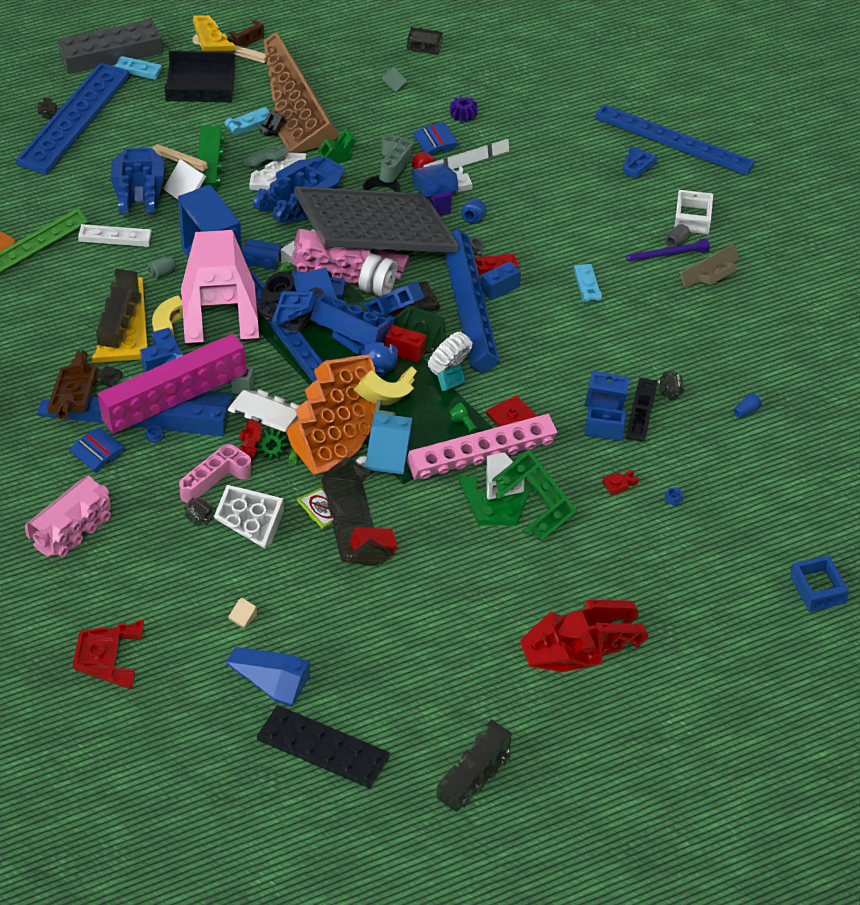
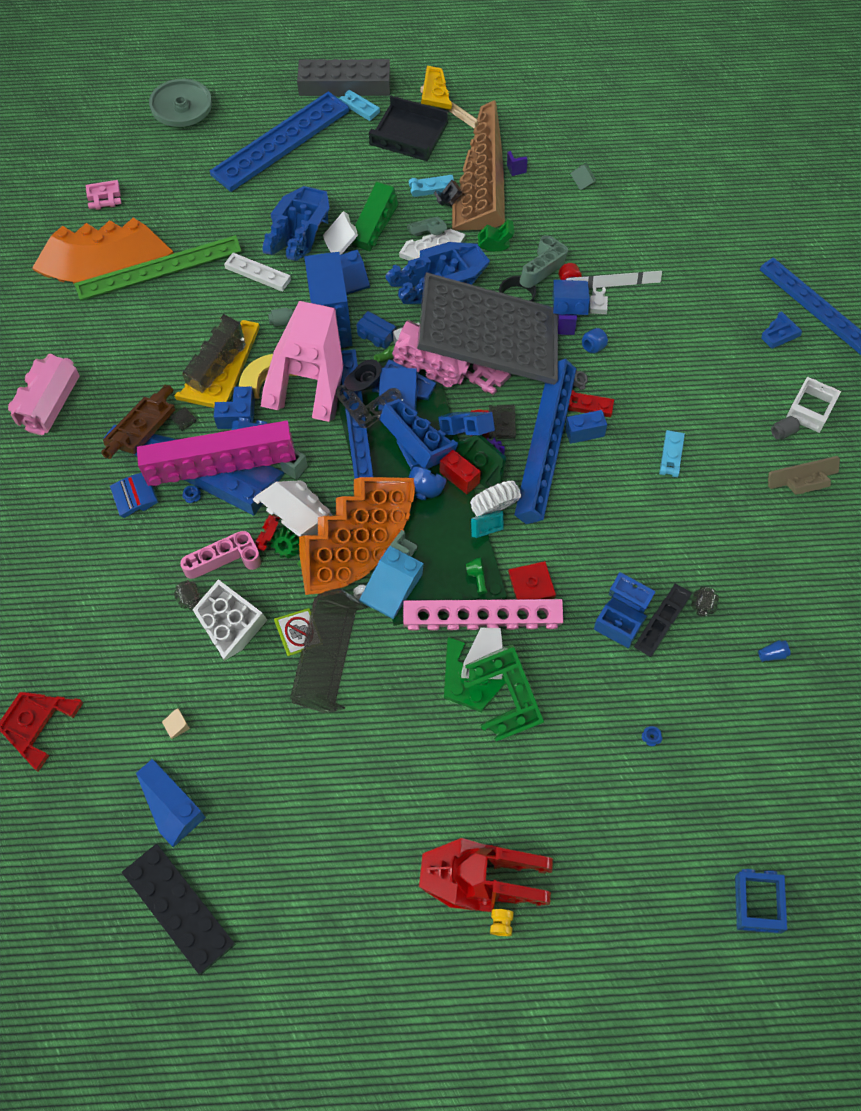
camera: 25 degrees right, 15 degrees up
(47, 108) = (260, 125): clear smoke gear -> none
(62, 522) = (69, 562): bright pink brick -> none
(176, 156) = (348, 208): tan axle -> none
(247, 36) = (471, 97): copper hinge -> none
(292, 305) = (364, 403): blue wing -> none
(324, 84) = (516, 166): none -> dark purple panel
(374, 388) = (403, 519): light yellow arch -> none
(378, 275) = (468, 387): white wheel -> none
(381, 535) = (332, 687): red brick -> none
(424, 40) = (630, 143): clear smoke brick -> none
(435, 138) = (594, 250): blue slope -> none
(463, 109) = (634, 226): dark purple gear -> none
(476, 767) = (303, 1002): clear smoke wedge -> none
(613, 661) = (501, 922): none -> yellow wheel
(617, 483) = (602, 698): red plate -> none
(701, 245) = (804, 445): dark purple piece -> none

